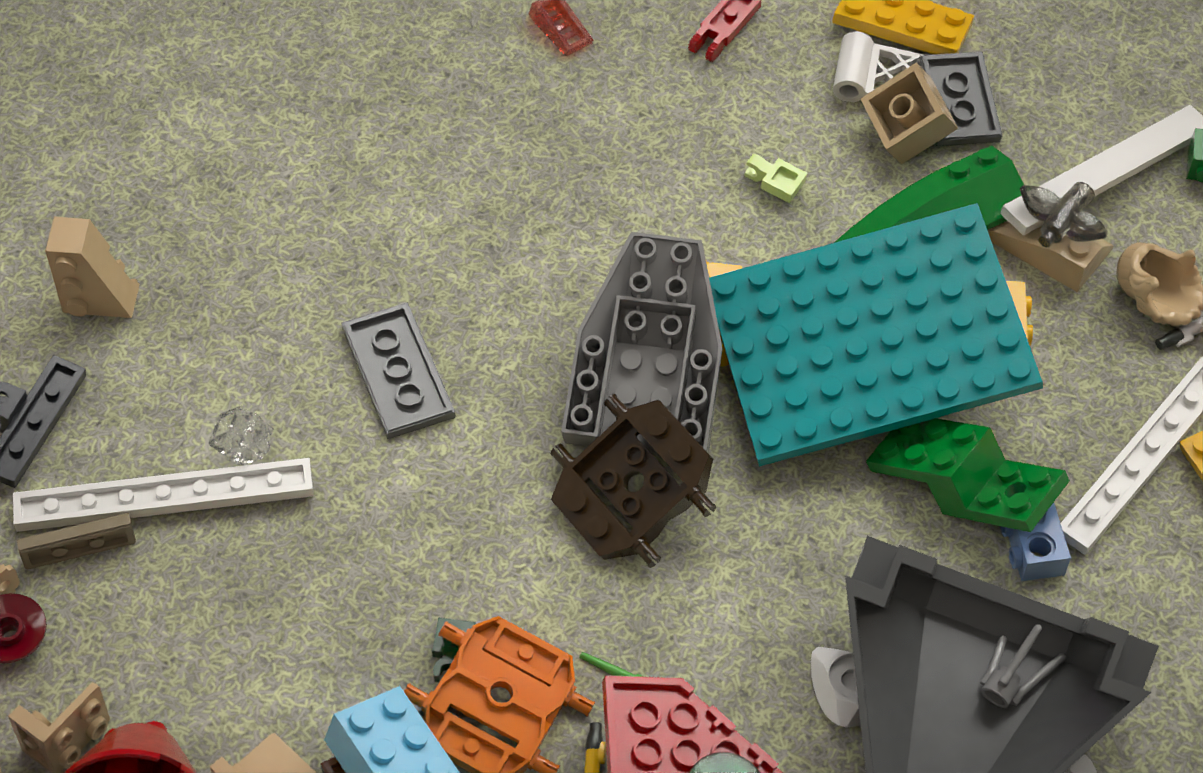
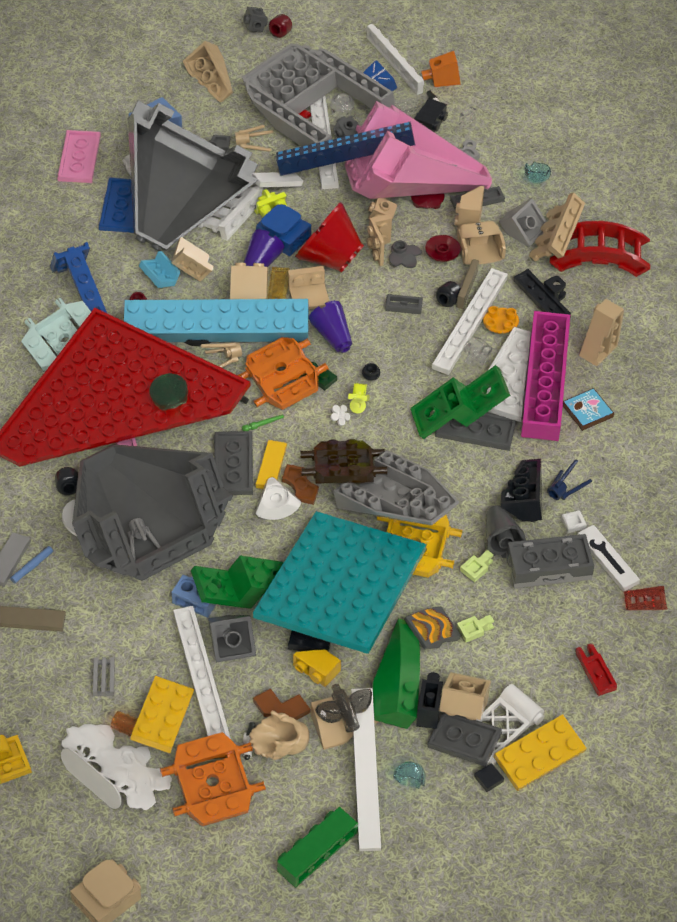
camera: 125 degrees right, 5 degrees down
(59, 686) = (404, 254): none -> dark grey plate
(123, 555) = (448, 293): none -> black head
(129, 451) = (501, 319): none -> light orange dish
(198, 646) = (403, 304): none -> dark grey tile
(224, 317) = (546, 376): none -> dark pink brick
(247, 247) = (588, 409): none -> tile
(270, 374) = (513, 364): none -> white wing
(333, 679) = (332, 325): none -> dark purple cone
(388, 383) = (460, 402): none -> green bracket
(389, 566) = (371, 372): none -> black plate
(445, 201) = (558, 487): none -> dark blue plant
(471, 544) = (358, 398): none -> neon yellow hips
(487, 163) = (573, 521): none -> white tile
(488, 231) = (524, 492): none -> black wedge
(519, 564) = (339, 414): none -> white plant
(521, 96) = (610, 559): none -> white tile
(587, 220) = (501, 530): none -> dark grey cone
(596, 139) = (550, 561): none -> dark grey piece
(671, 223) = (477, 567): none -> yellowish green plate
(695, 553) = (304, 489): none -> dark orange tile
(700, 602) = (271, 462): none -> yellow tile
(745, 655) = (235, 460): none -> dark grey tile
(769, 544) = (276, 501): none -> white hat
(820, 218) = (432, 627): none -> slope
(945, 145) = (429, 701): none -> black brick
(991, 50) = (489, 777): none -> black tile
(1061, 445) = (232, 637): none -> dark grey slope
(1071, 118) = (412, 772): none -> clear light blue hair
(1100, 315) = (294, 707): none -> dark orange tile

